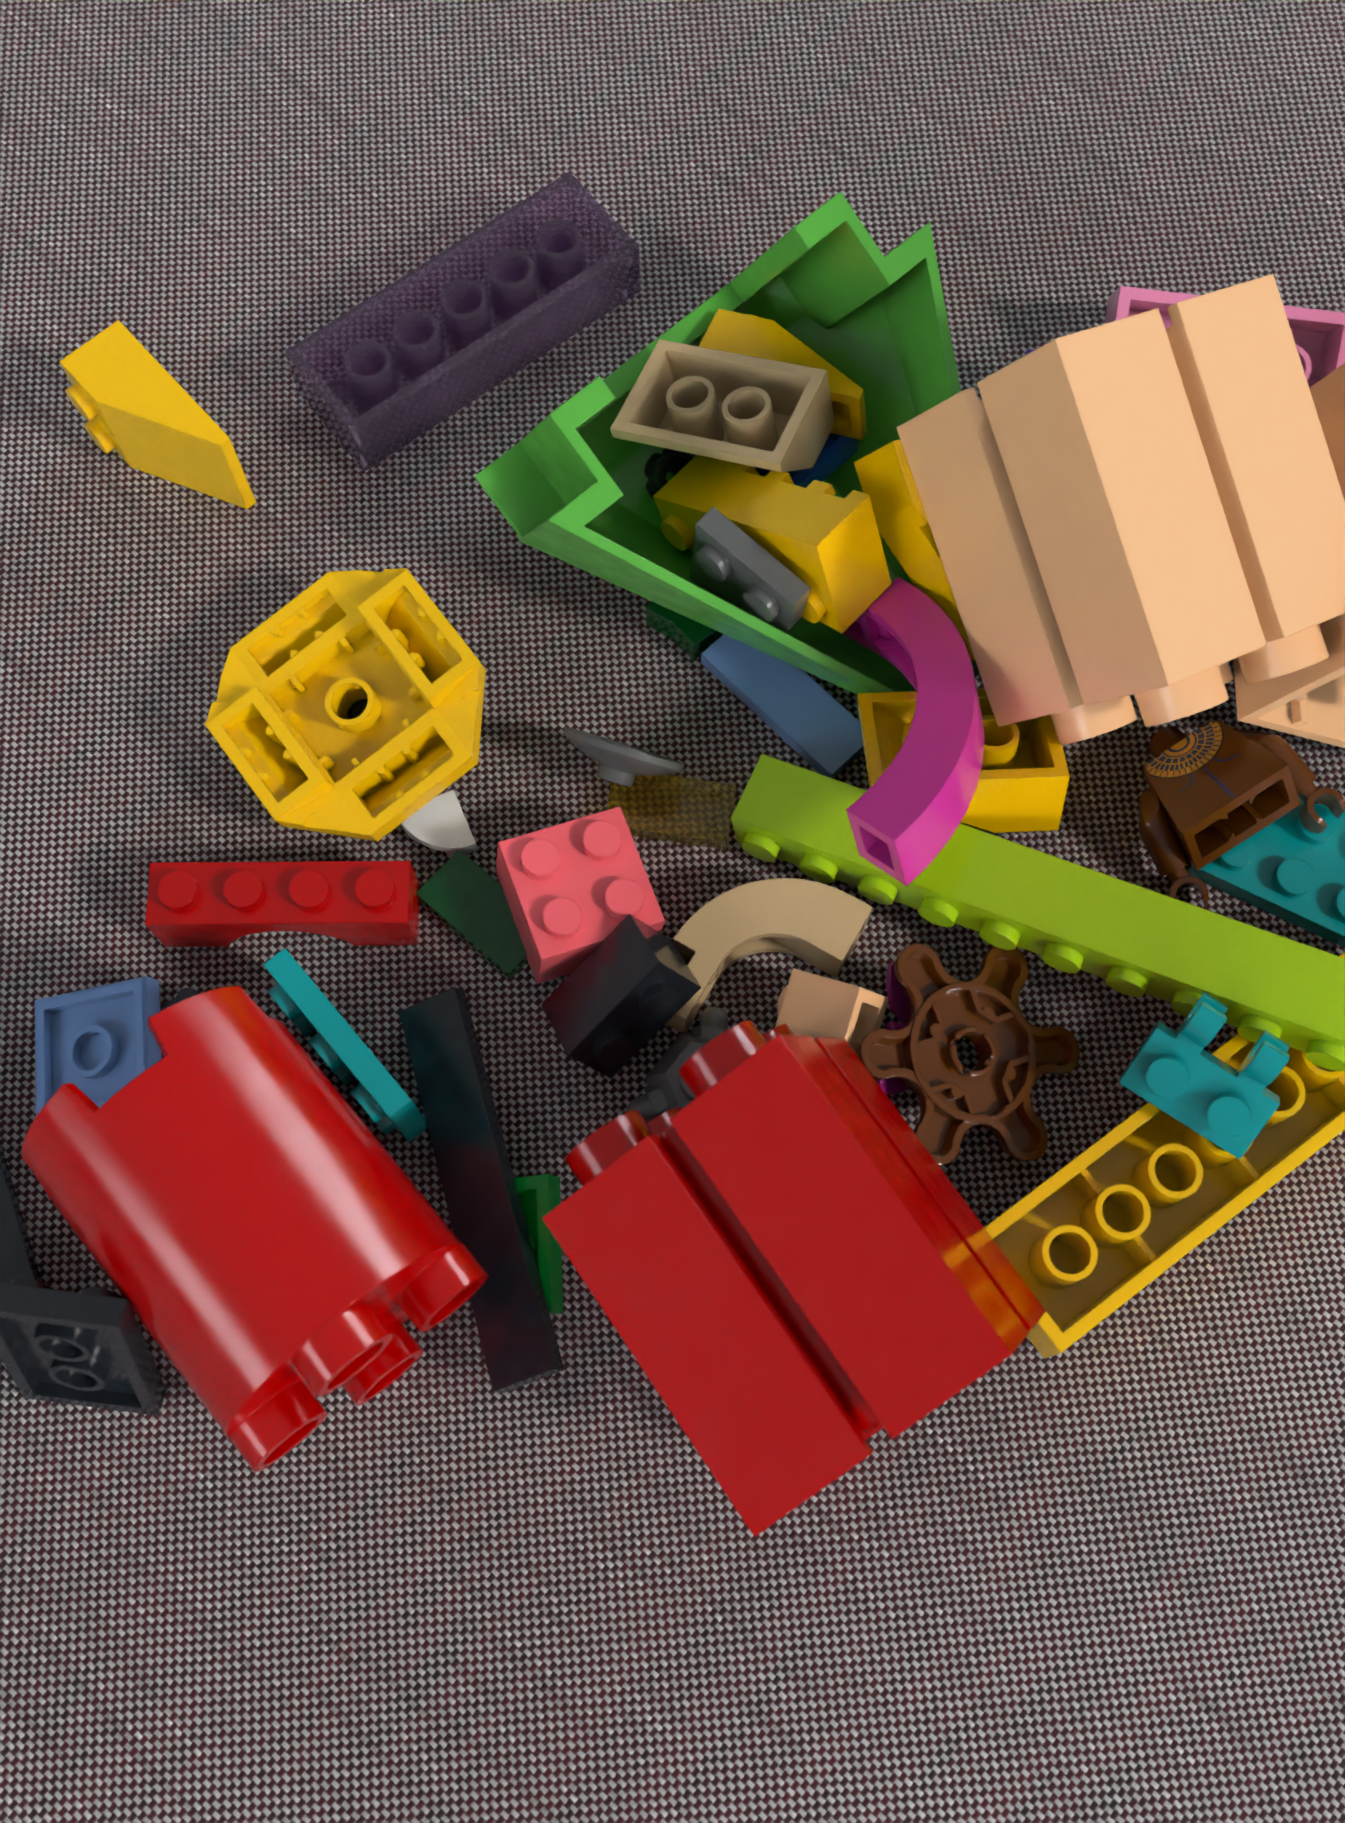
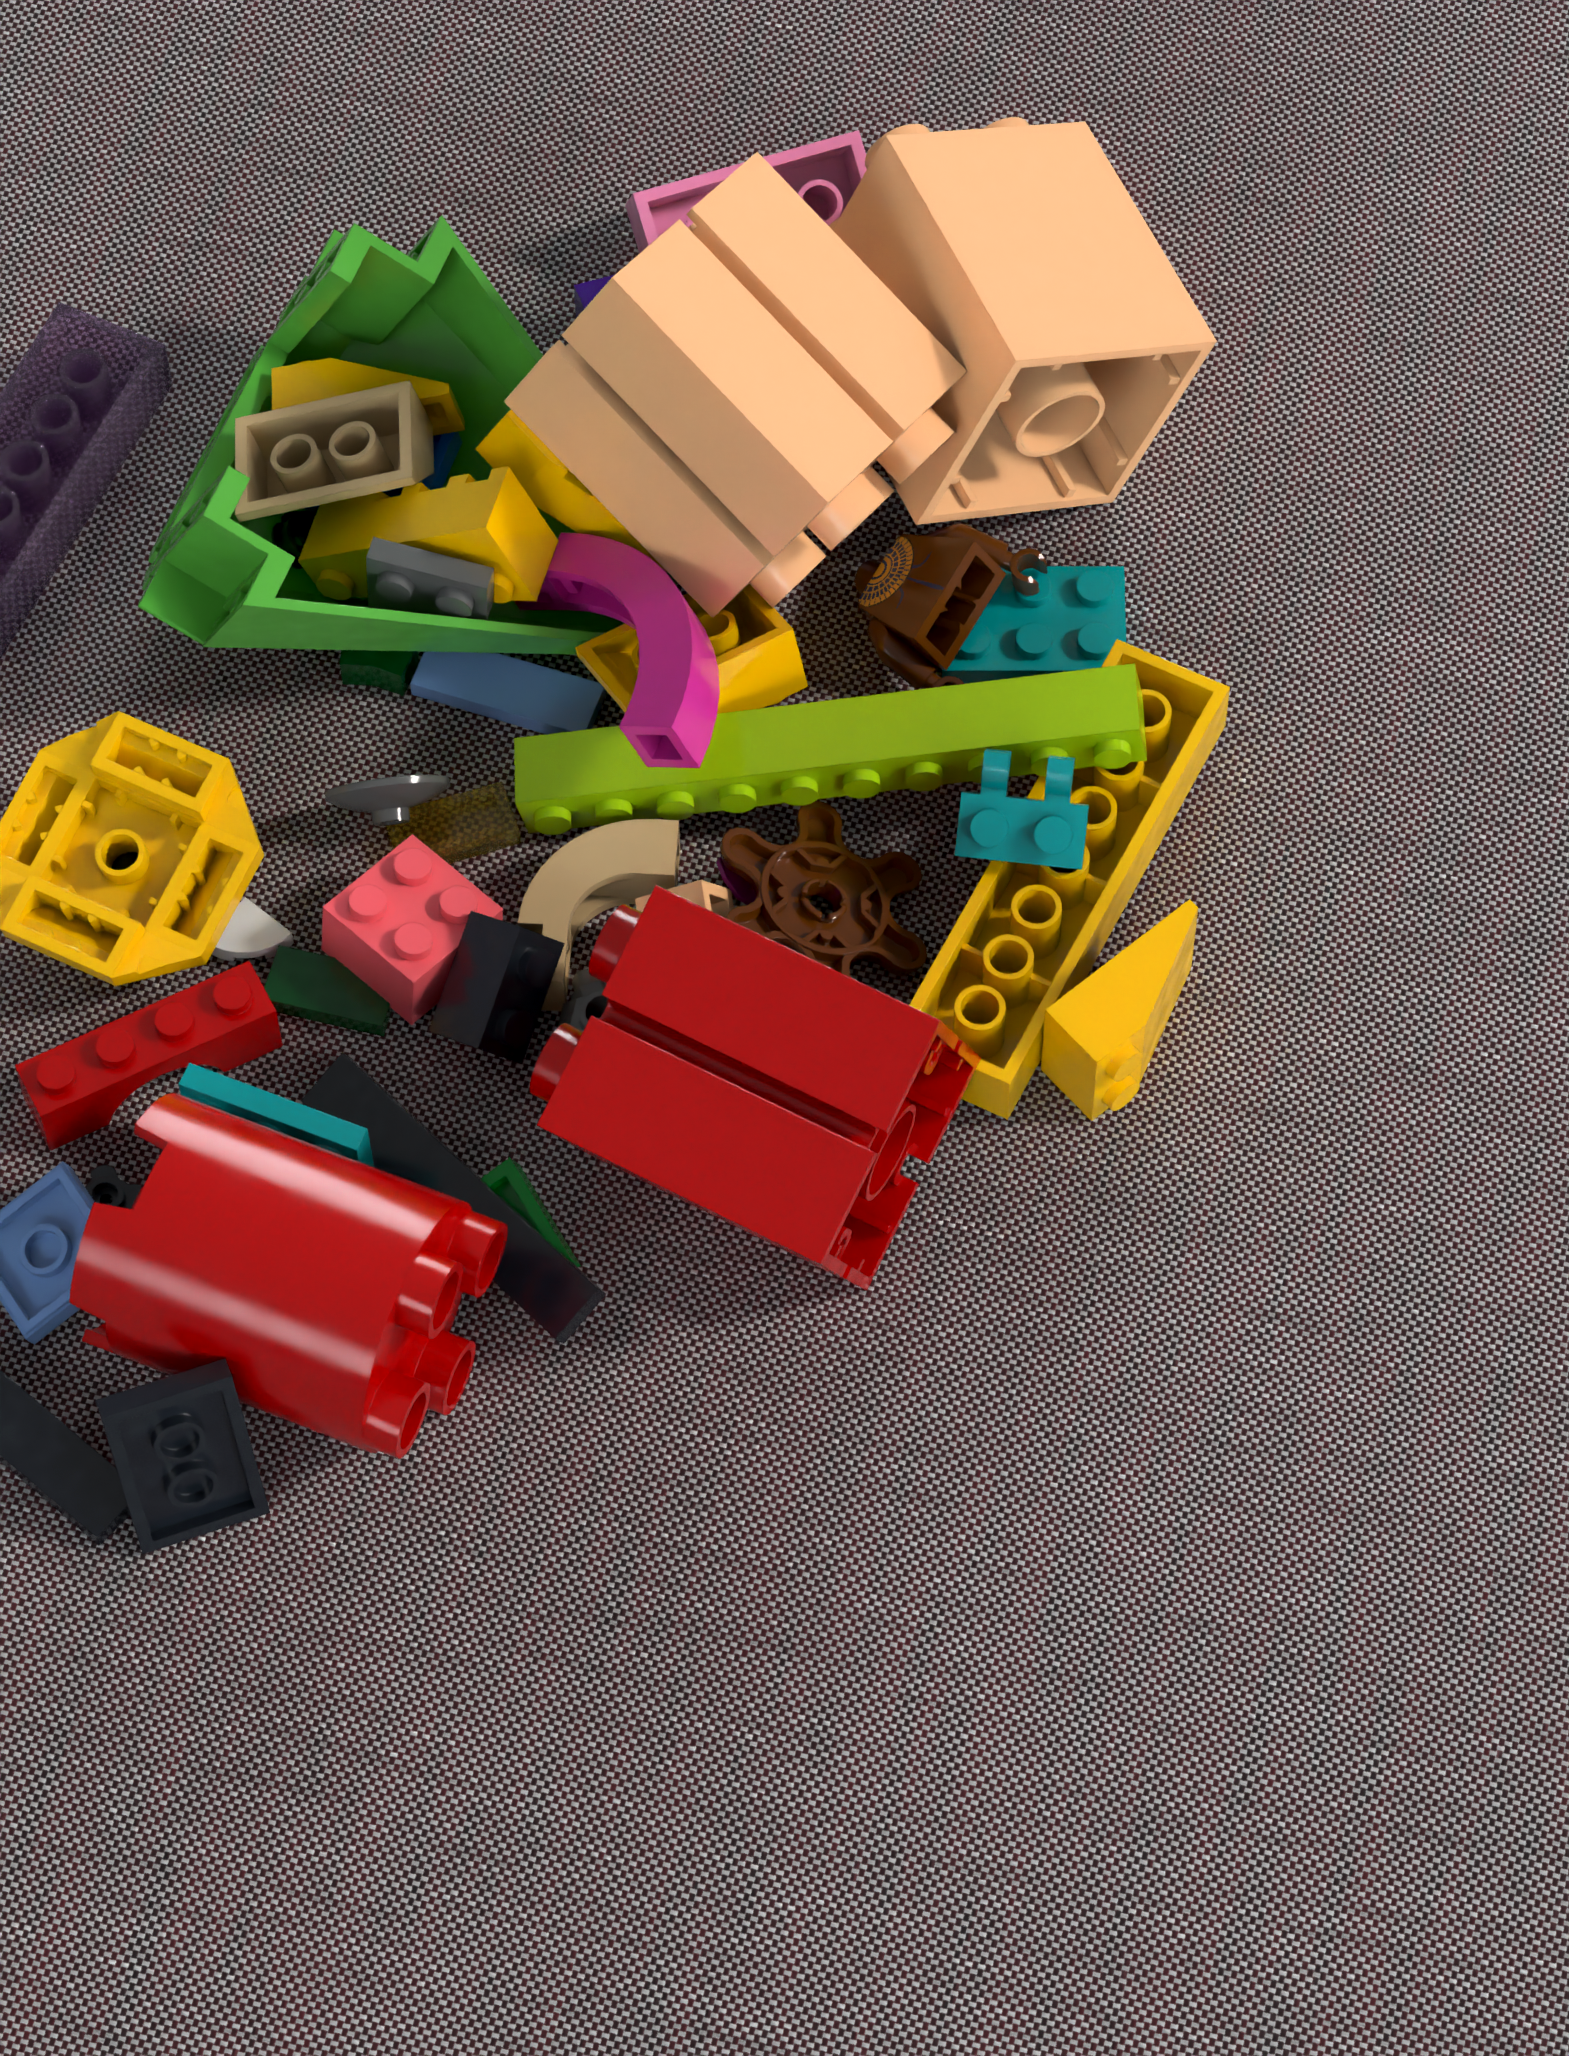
camera: 25 degrees left, 10 degrees down
(1206, 1331) = (1111, 1022): none -> yellow slope

